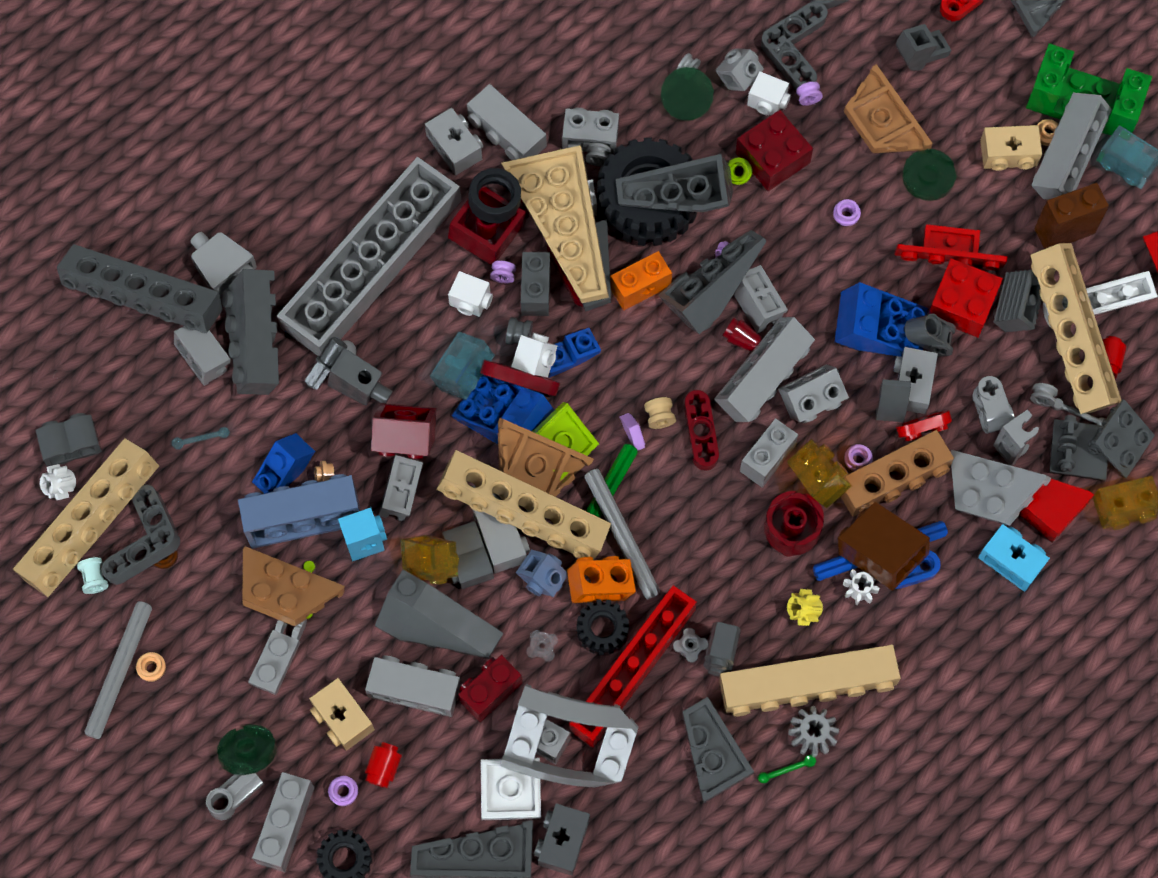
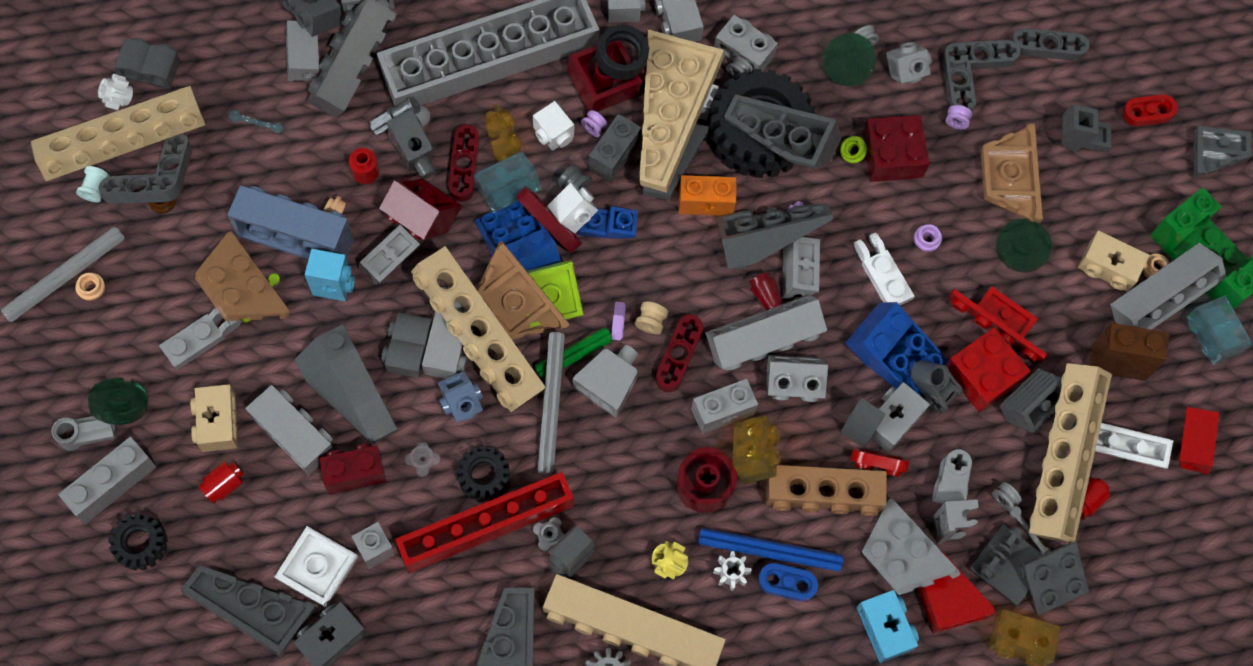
camera: 25 degrees right, 0 degrees up
(283, 463) = (307, 179): blue slope -> none
(327, 422) = (364, 165): none -> red brick
(336, 784) = (170, 477): lavender plate -> none
(422, 318) = (500, 124): none -> clear yellow hinge
(425, 383) = (459, 152): none -> dark red beam
(430, 558) = (370, 328): clear yellow brick -> none
(529, 725) = (355, 521): light grey wedge -> none
(602, 584) = (504, 437): orange brick -> none
(657, 486) = (608, 379): none -> light grey torso
(768, 94) = (921, 98): white brick -> none
(827, 262) = (883, 272): none -> white hinge
(857, 450) = (802, 448): lavender plate -> none
(883, 545) = (772, 546): reddish brown brick -> none

